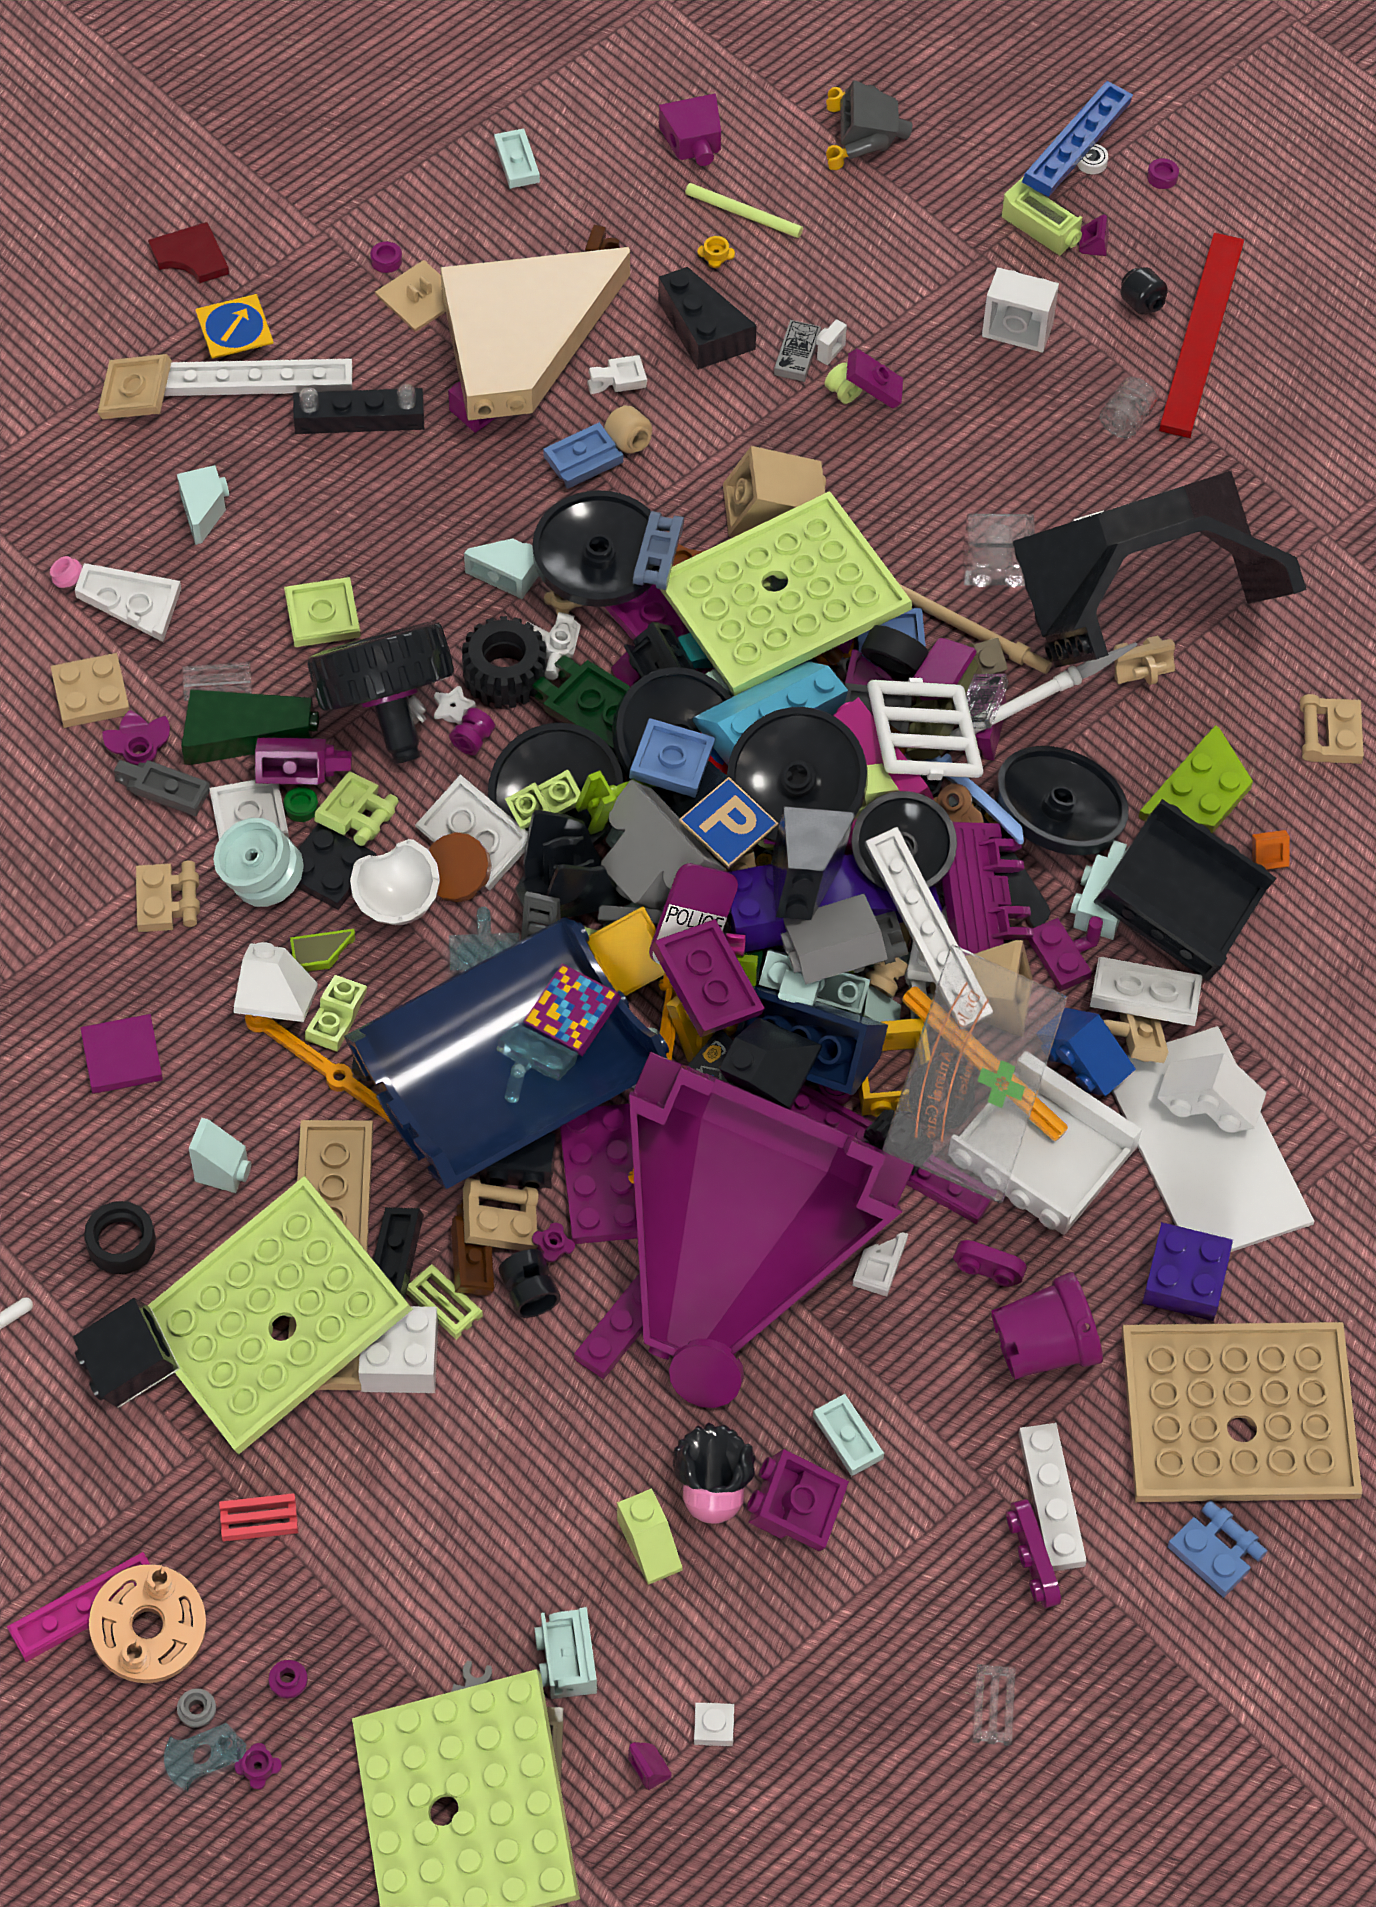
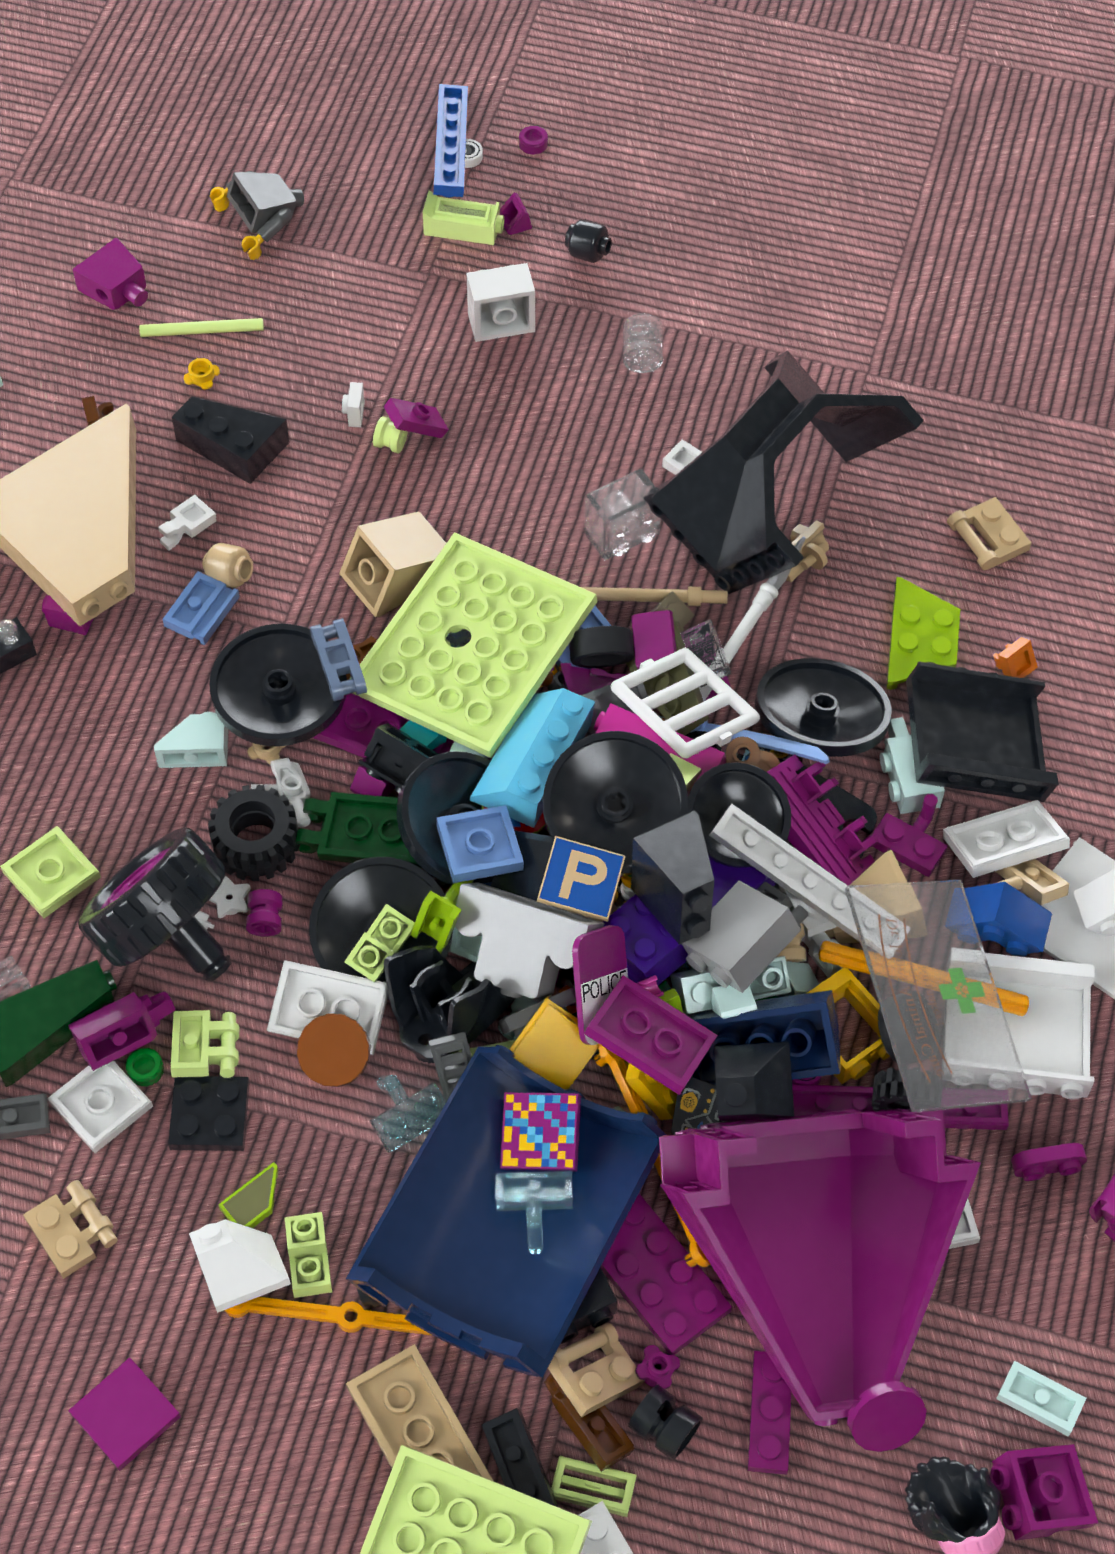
camera: 30 degrees left, 0 degrees up
(218, 1157) = (294, 1469): light aqua slope -> none
(258, 862) = (146, 1147): light aqua wheel -> none
(397, 884) = (292, 1097): white cylinder -> none
(797, 350) = (328, 426): light grey tile -> none
(1201, 335) = (657, 258): red tile -> none

